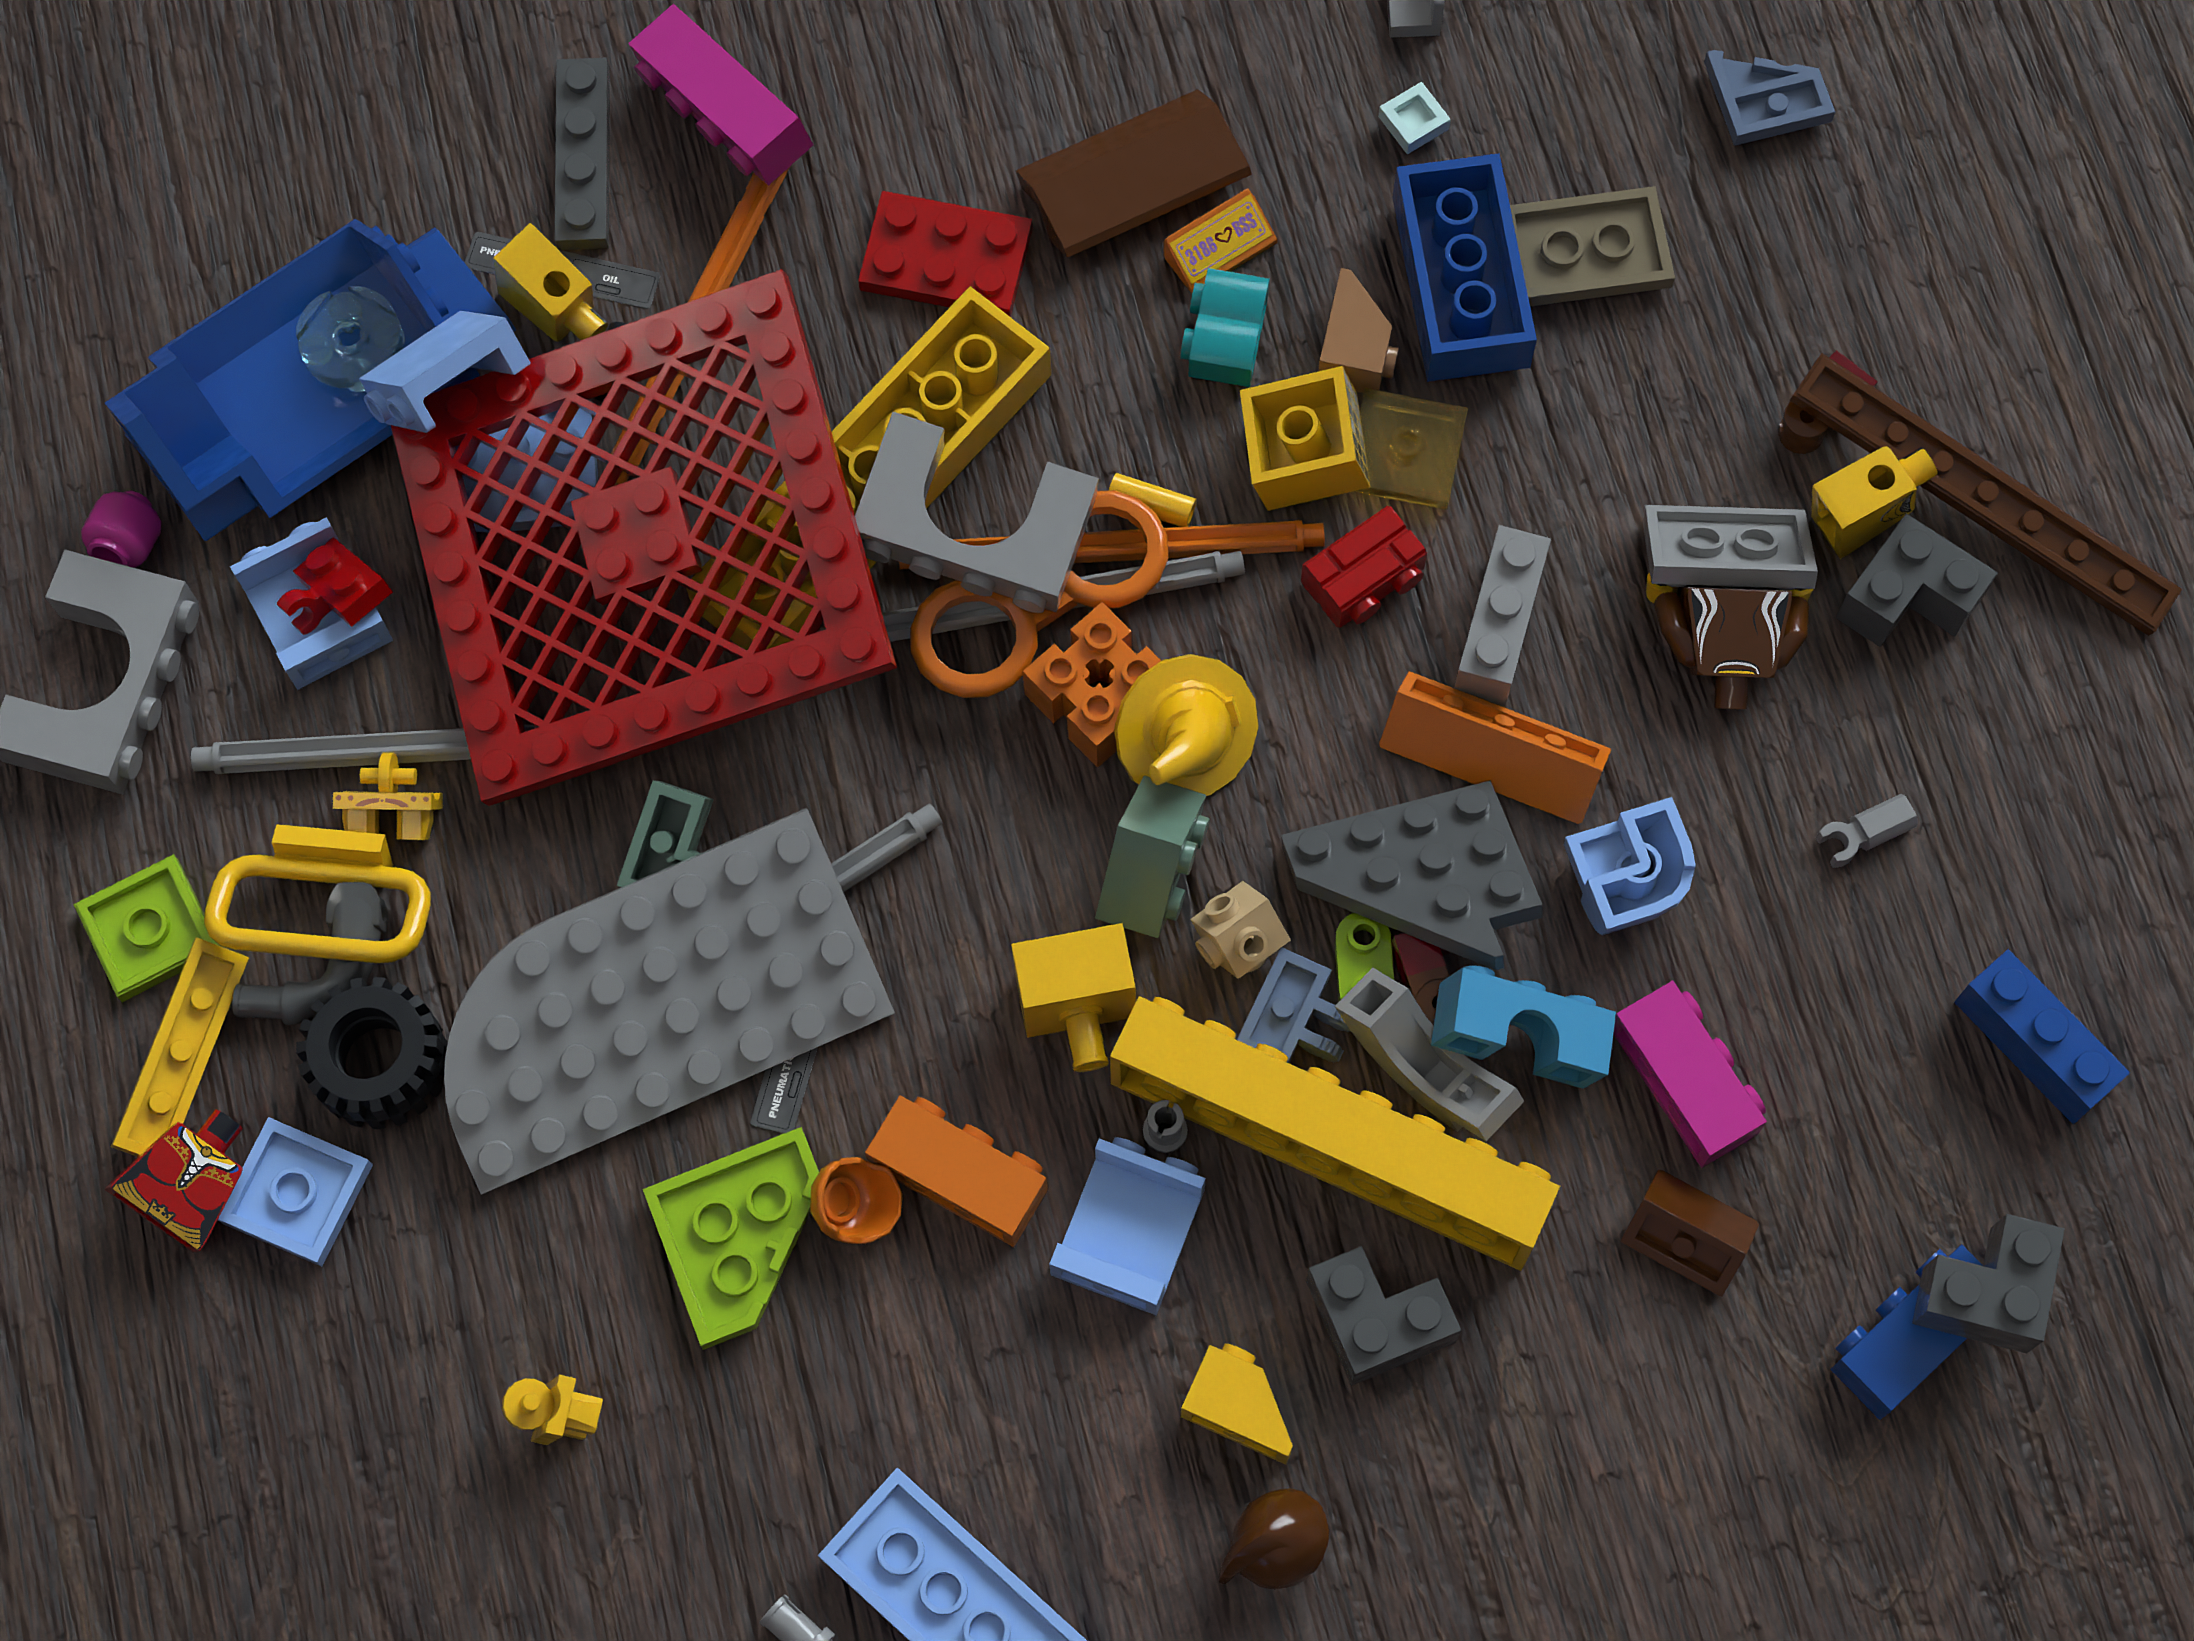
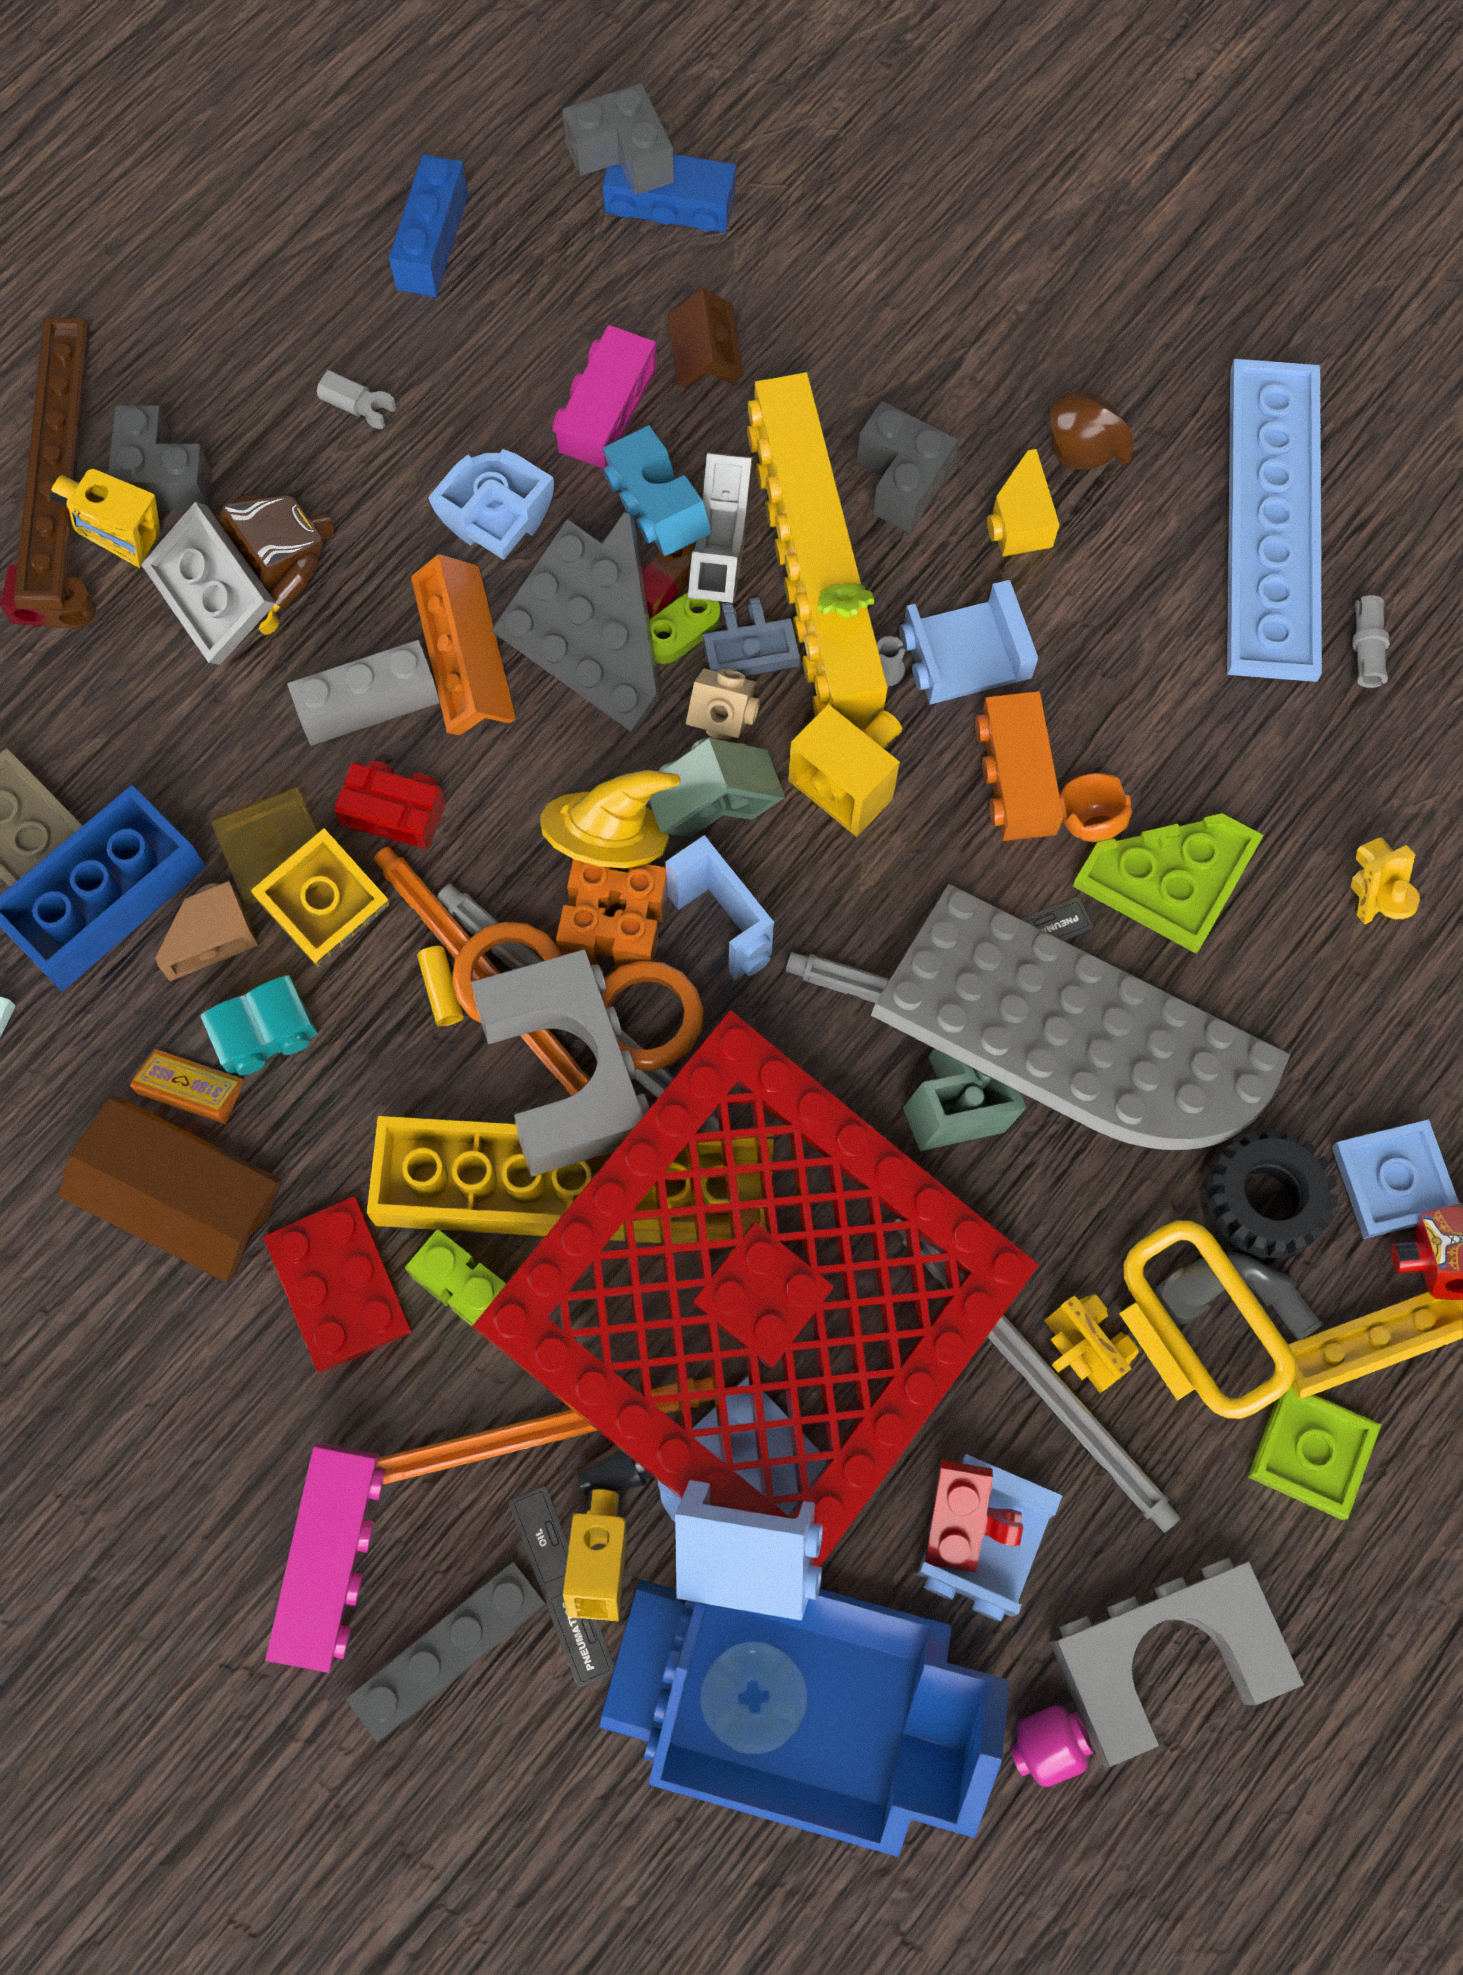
camera: 130 degrees left, 0 degrees up
(835, 333) = (447, 1267): none -> lime piece
(1021, 786) = (703, 869): none -> light blue panel
(1229, 1073) = (844, 599): none -> lime plant

